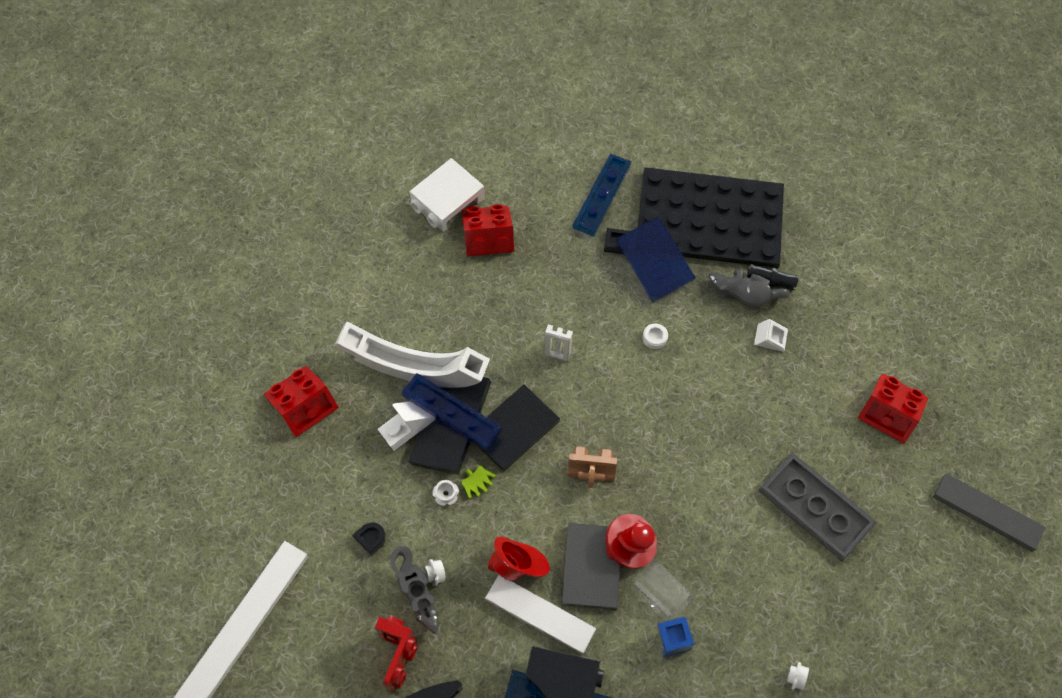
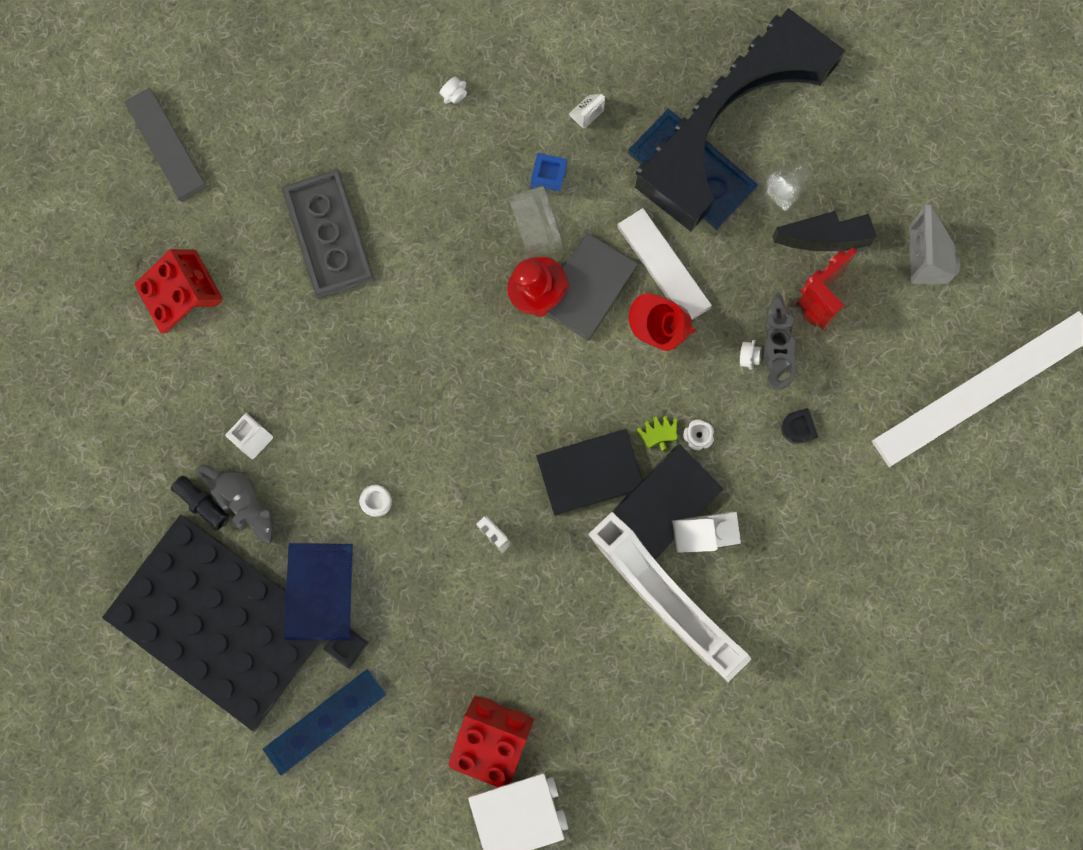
camera: 145 degrees left, 15 degrees up
(301, 400) = (813, 624): red bracket -> none
(451, 411) = (654, 513): clear blue tile -> none
(592, 467) = (520, 377): medium nougat hips -> none

